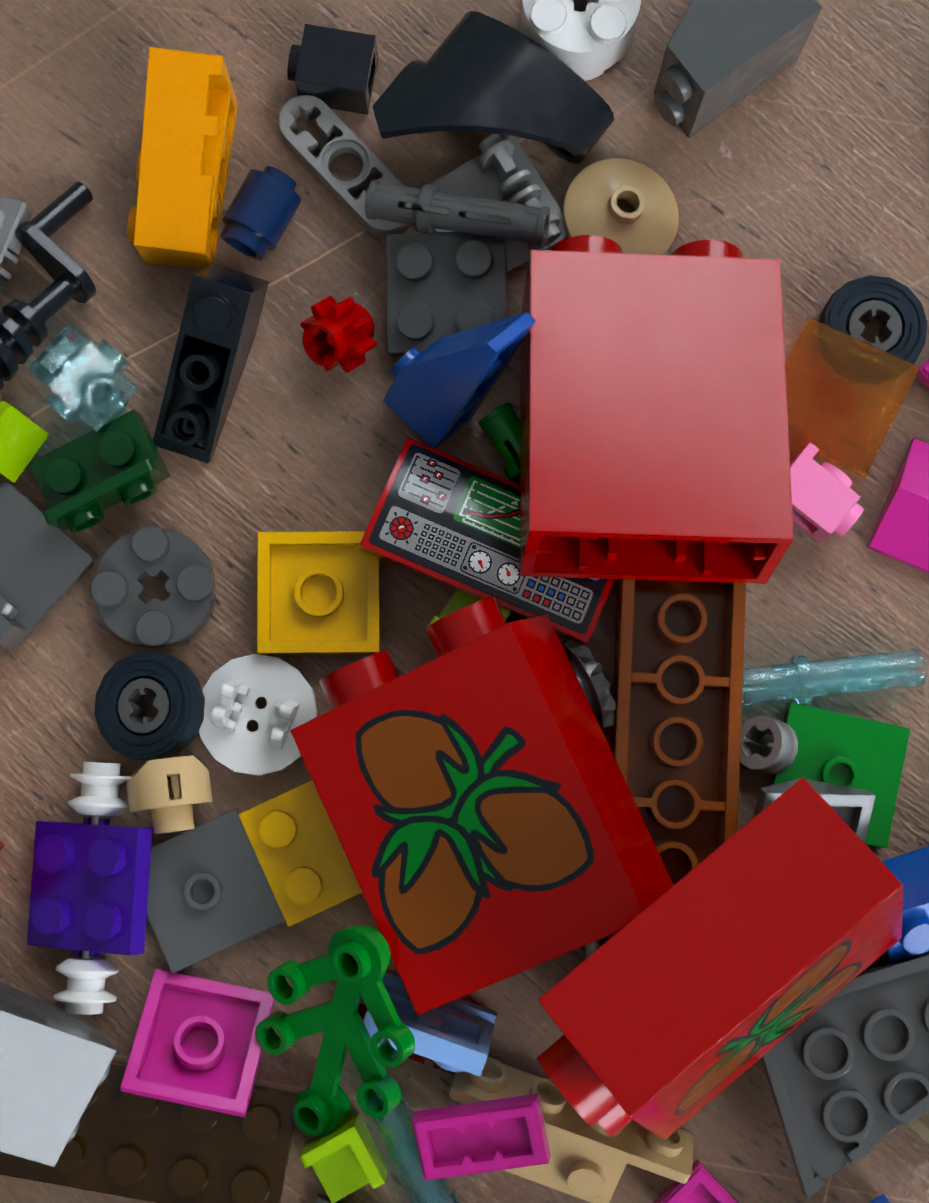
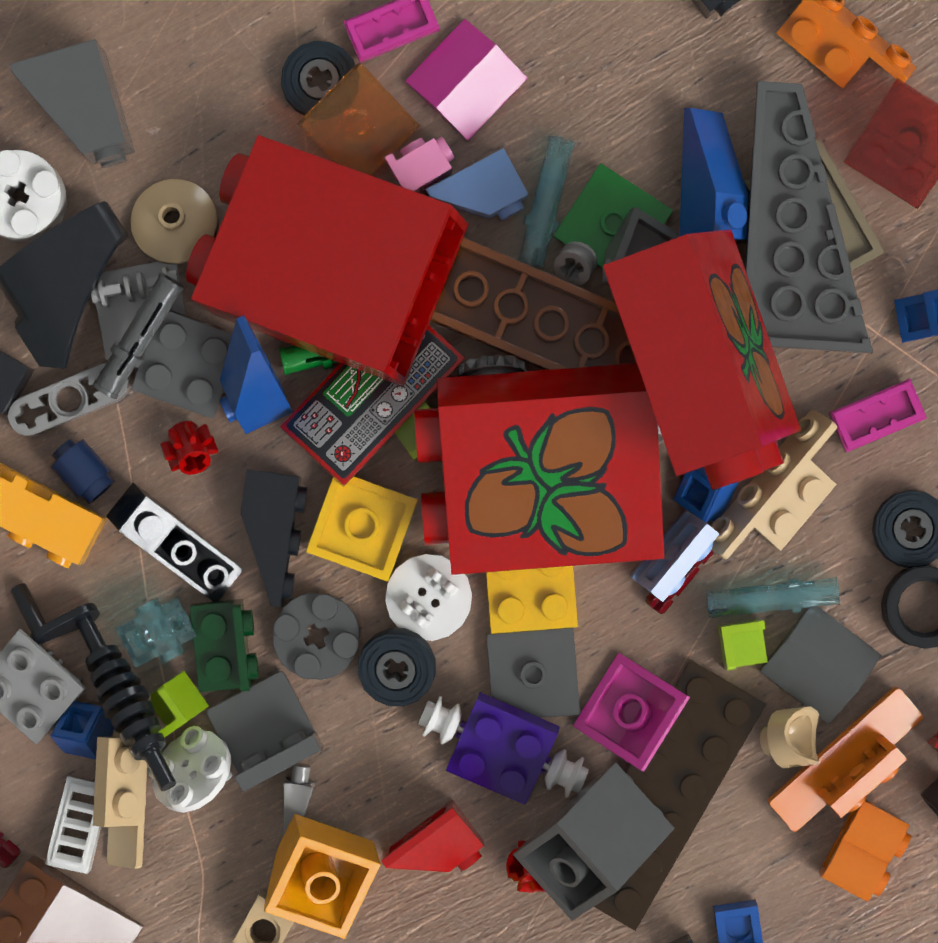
camera: 70 degrees left, 5 degrees up
(188, 786) = (459, 672): tan piece -> none
(279, 472) = (269, 519): none -> black slope
(358, 961) = (701, 644): green plant -> none
(481, 1137) = (758, 547): dark pink plate -> none
(522, 1030) = (699, 499): none -> blue slope
(820, 591) = (484, 188): none -> medium blue slope

